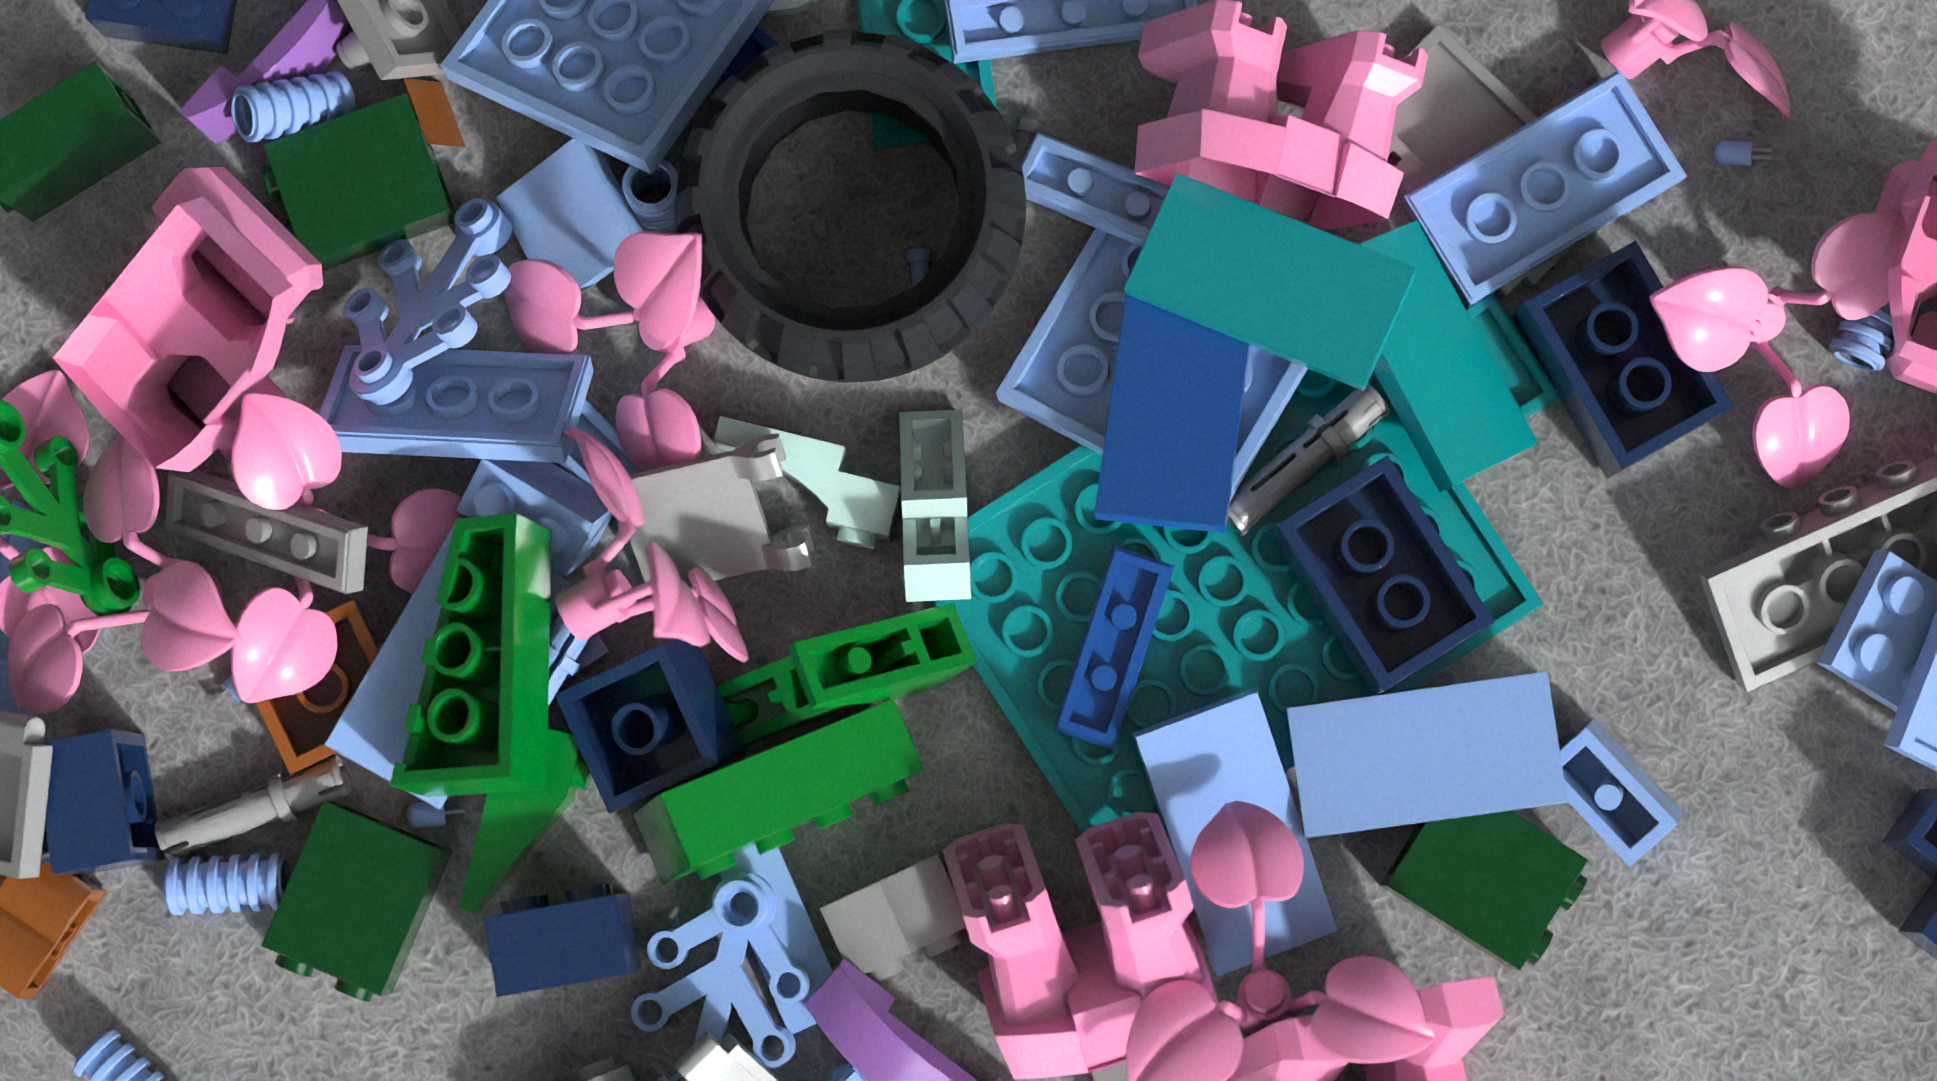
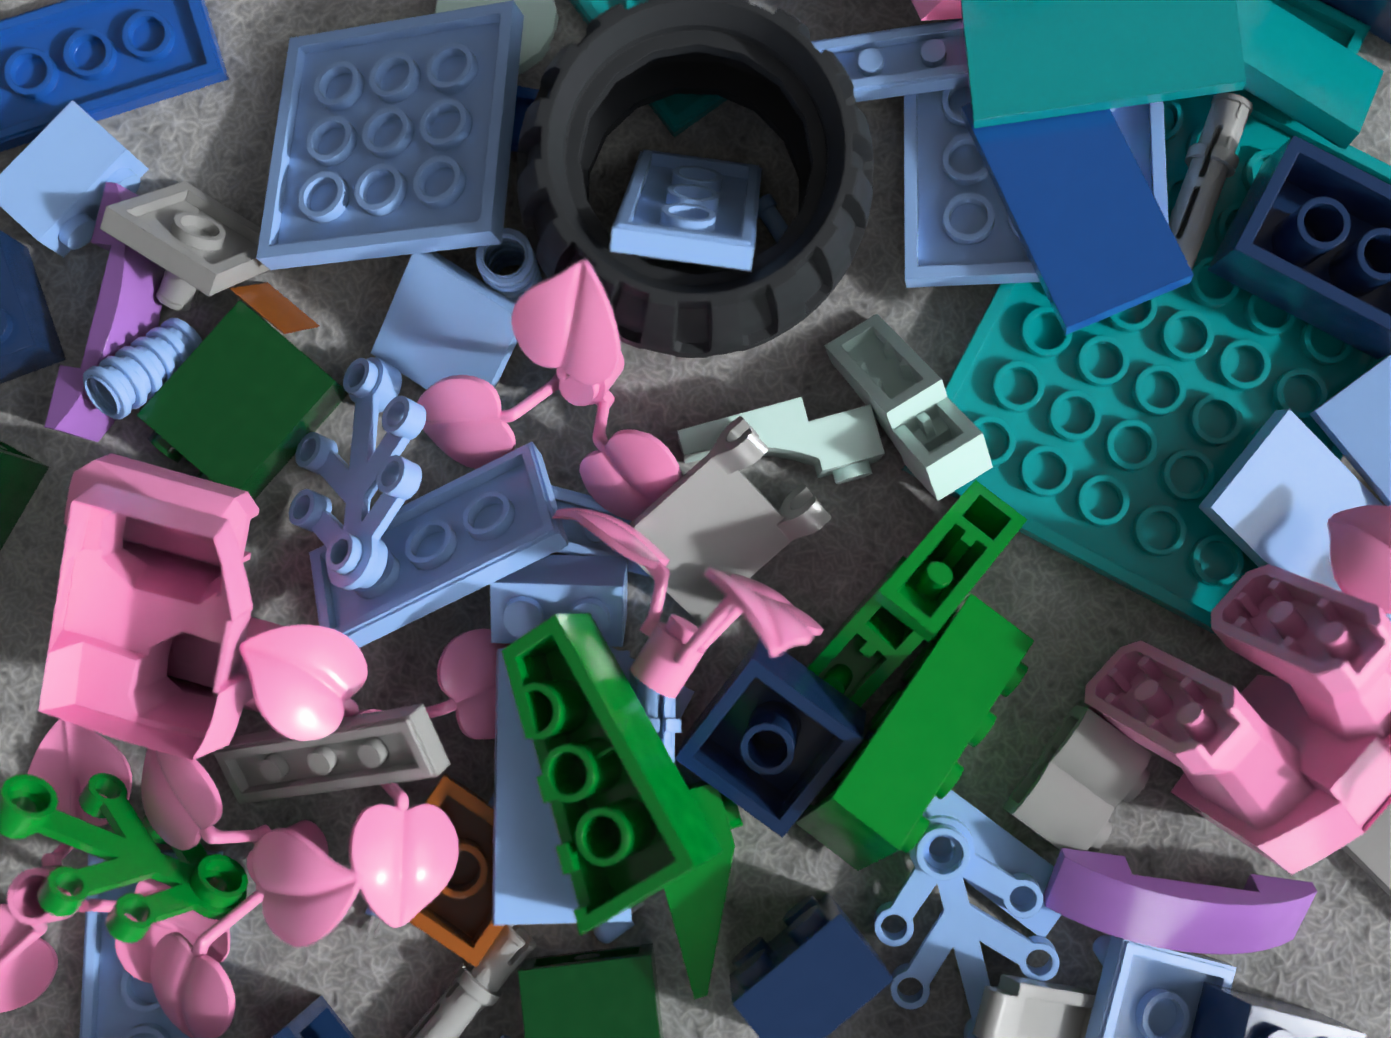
camera: 30 degrees left, 0 degrees up
(832, 231) = (689, 210): none -> light blue tile
(1113, 648) = (1132, 443): blue tile -> none

